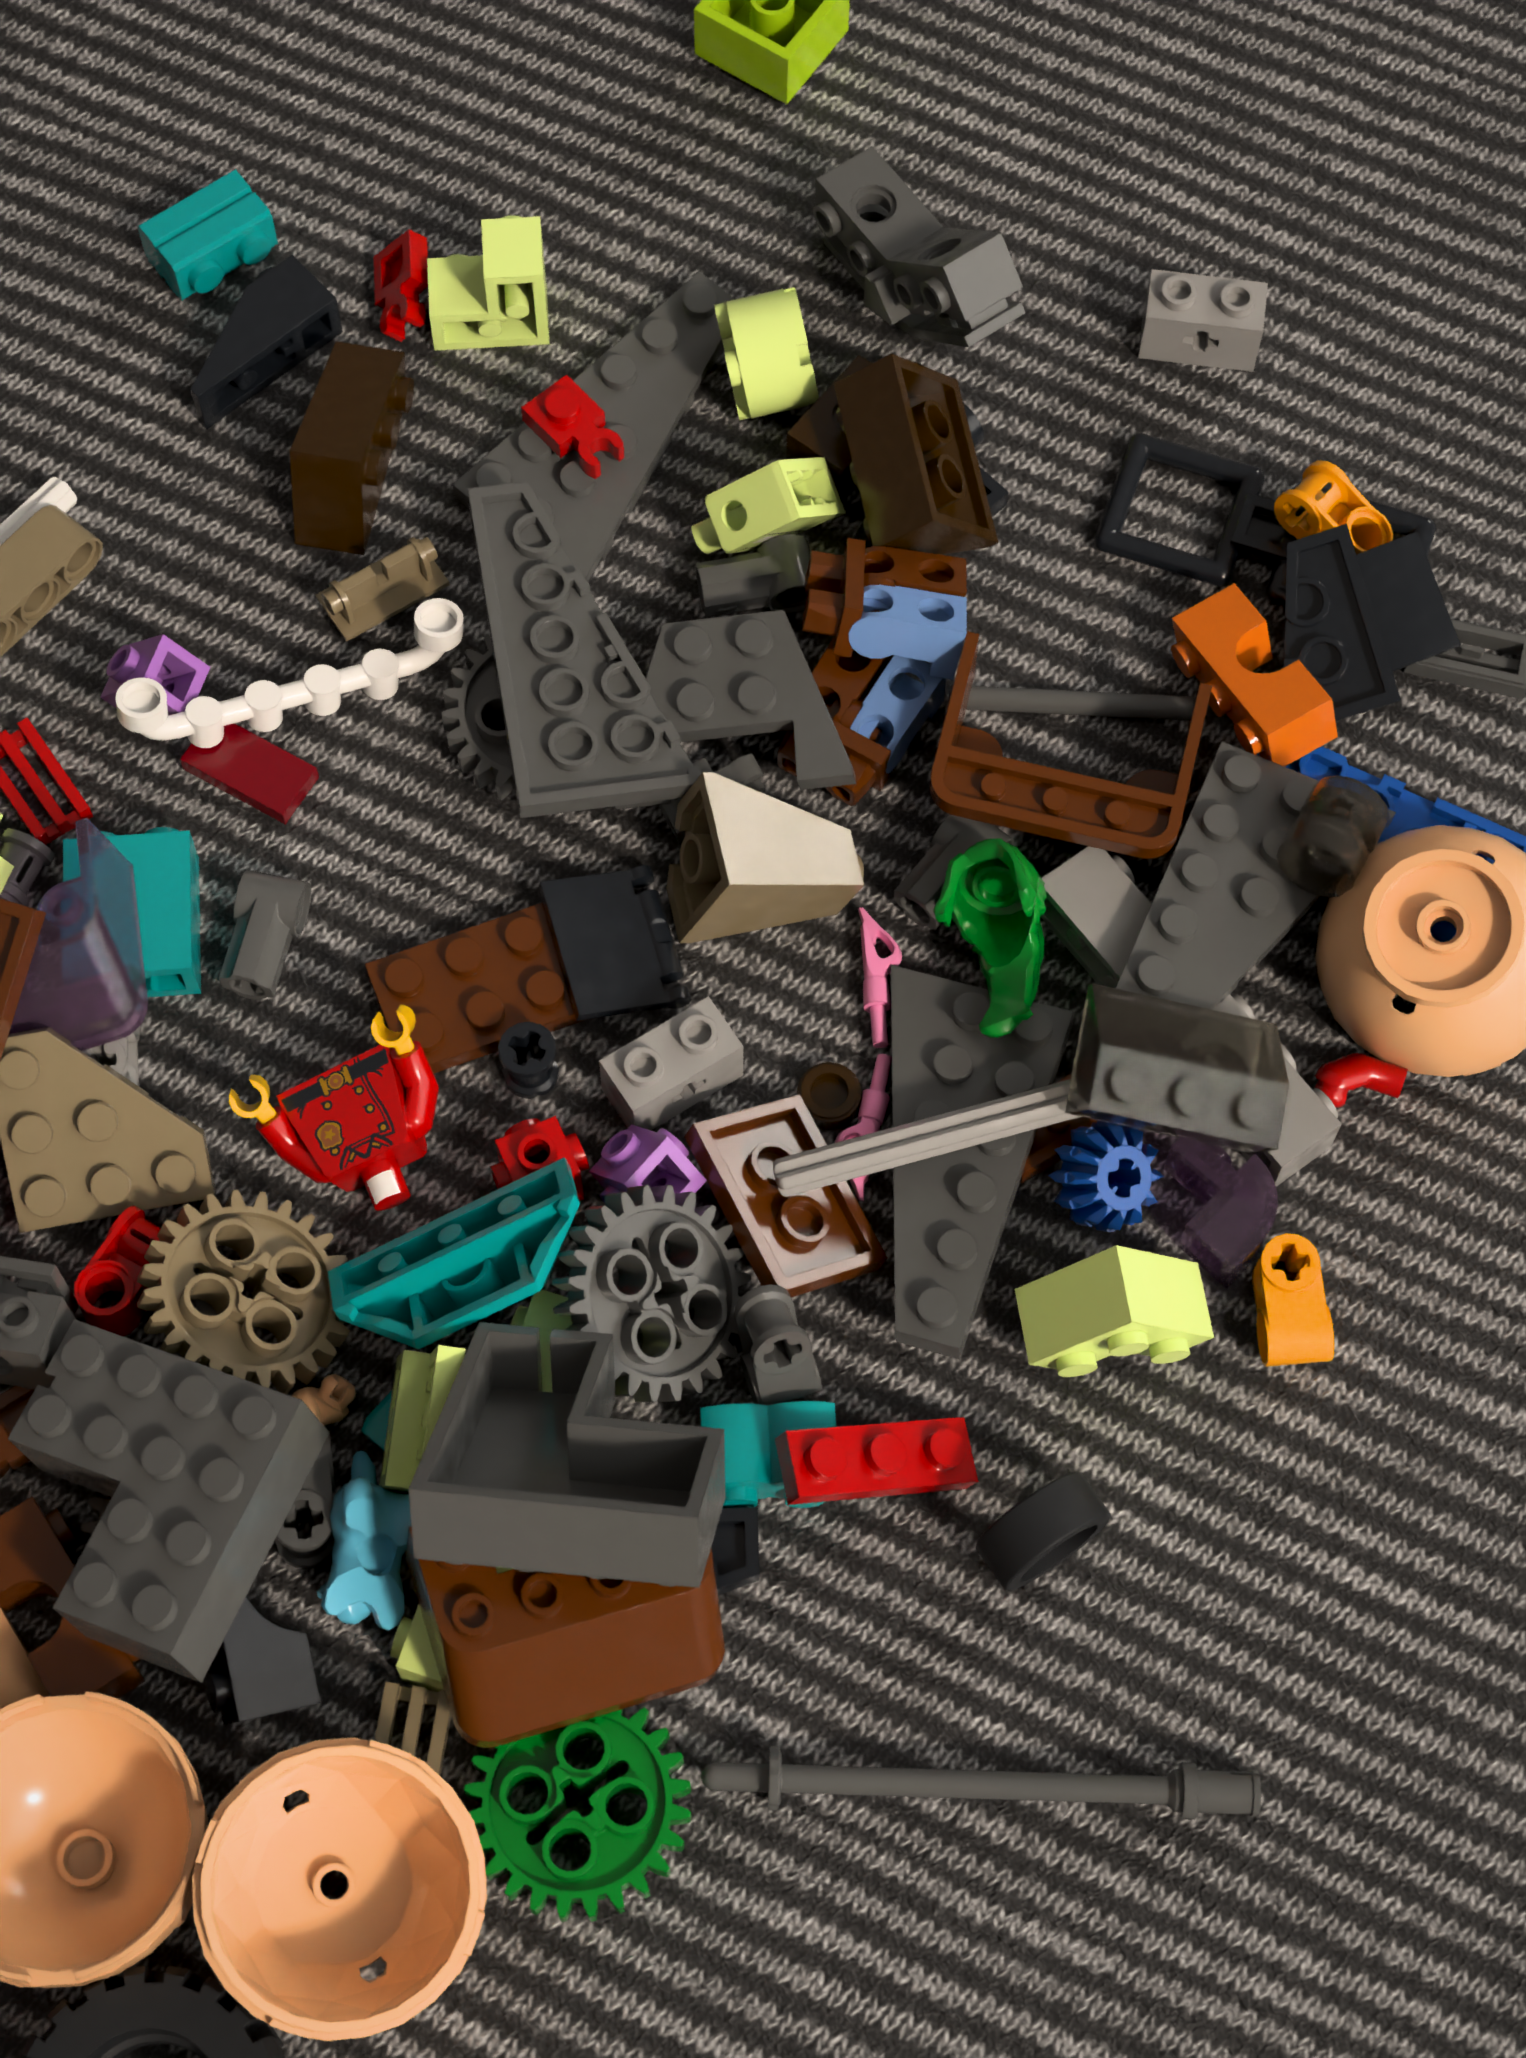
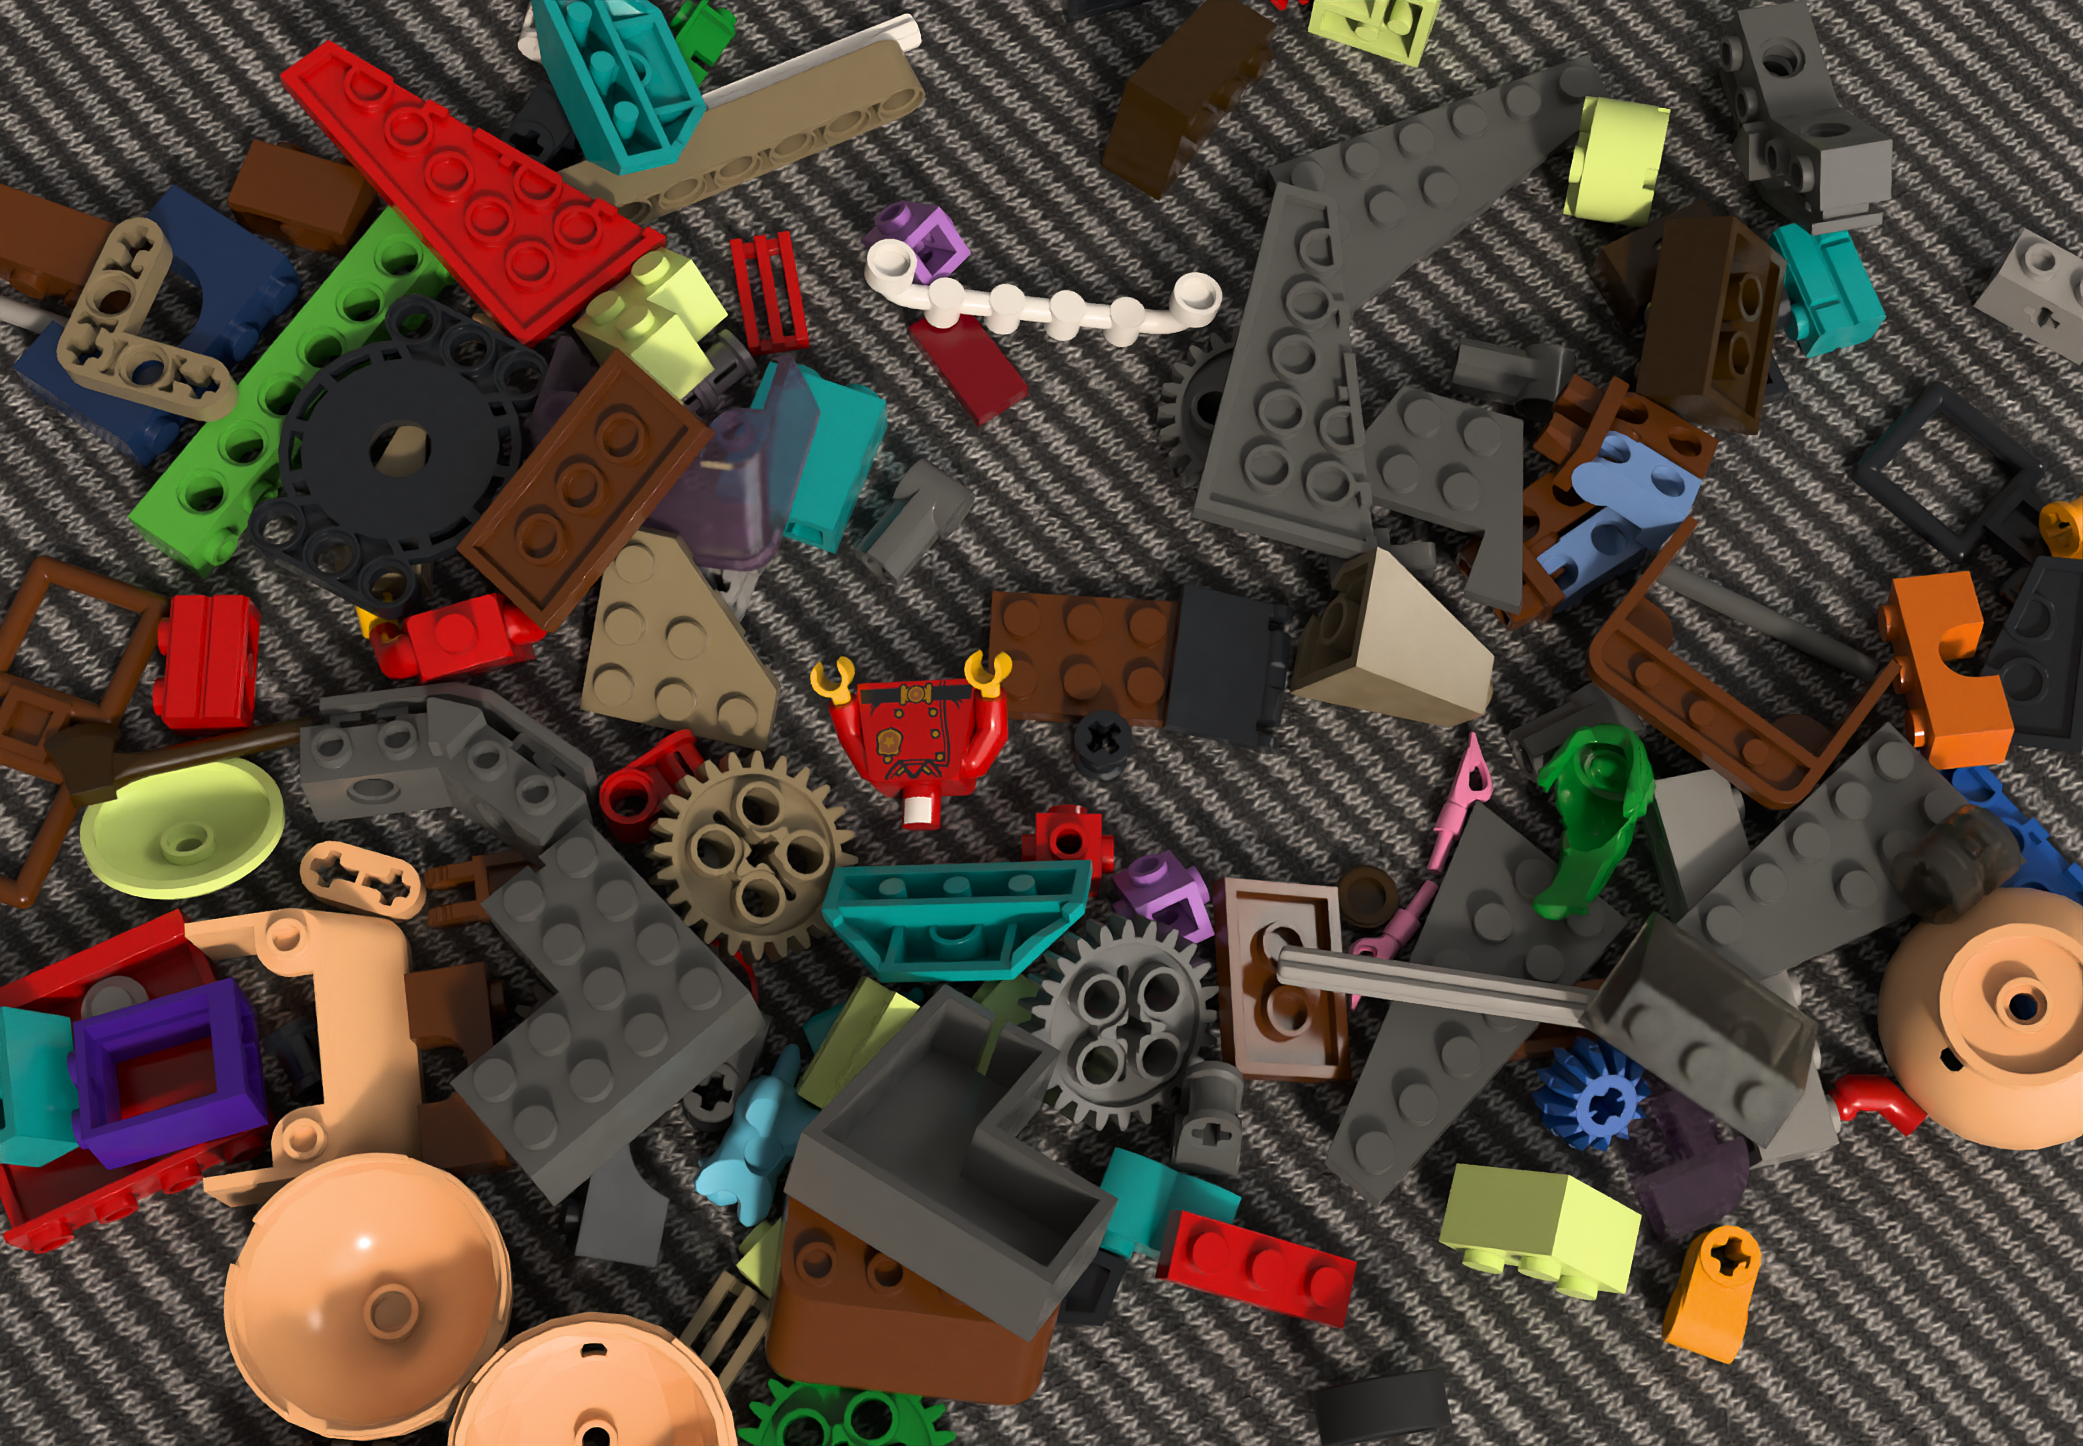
camera: 20 degrees right, 5 degrees up
(330, 1400) = (778, 987): light nougat arm -> none
(383, 588) = (1162, 241): dark tan hinge -> none
(570, 421) = (1403, 152): red plate -> none
(672, 1066) = (1230, 811): light grey brick -> none
(767, 504) = (1553, 311): yellowish green torso -> none
(1003, 392) = (1826, 290): none -> teal brick

